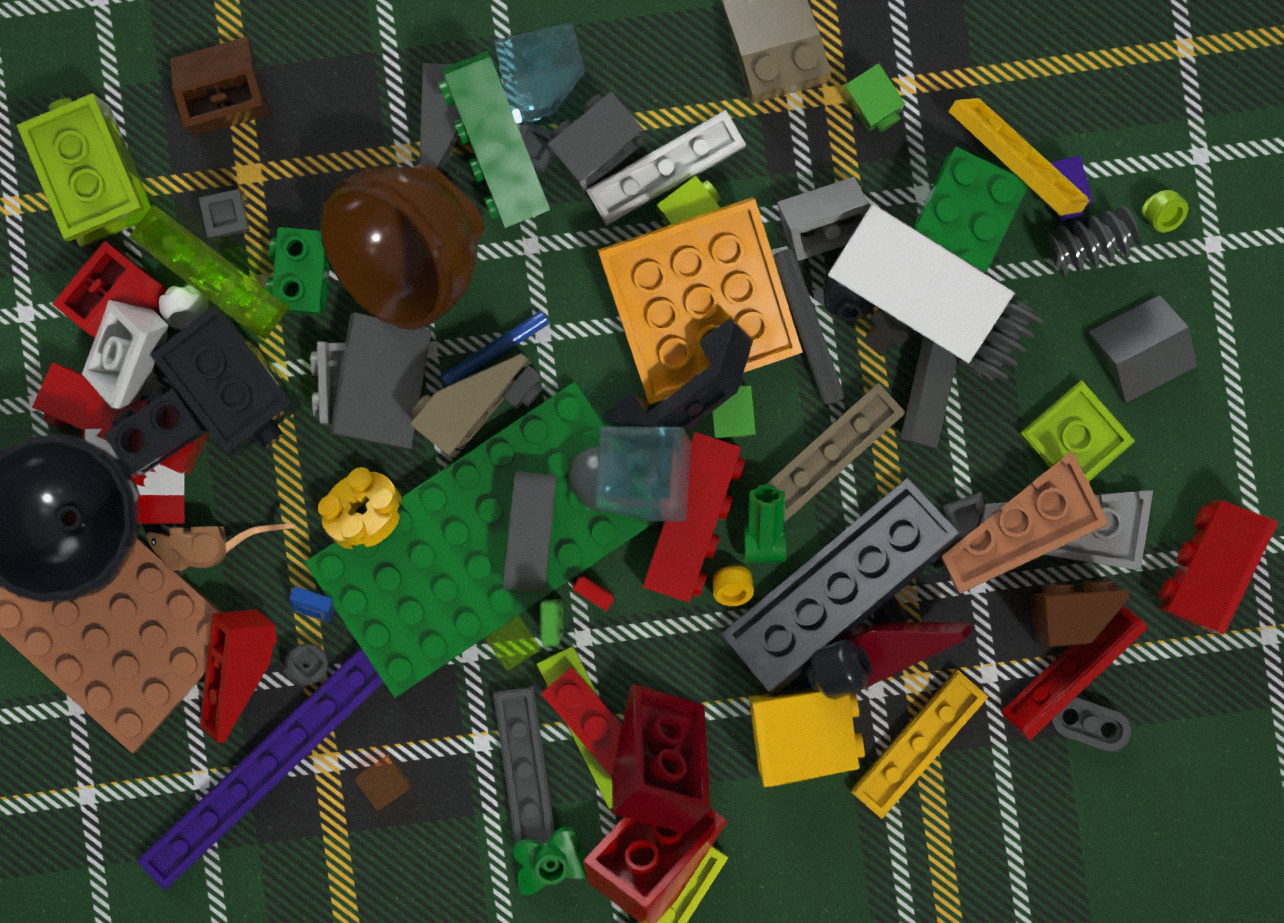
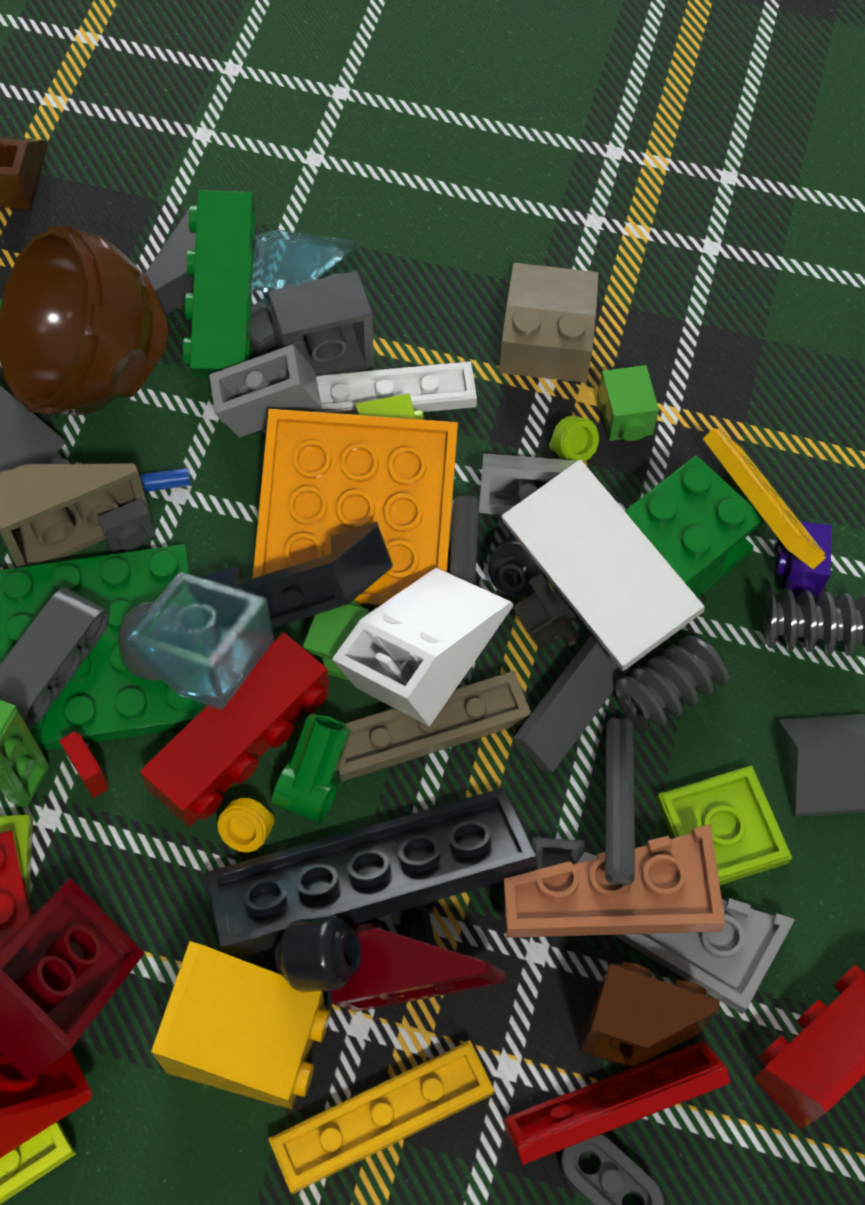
camera: 20 degrees right, 25 degrees down
(577, 225) = (266, 382): none -> light grey brick
(807, 395) = (421, 643): none -> white slope
(842, 151) = (575, 439): none -> lime tile
(999, 457) = (620, 802): none -> dark grey axle

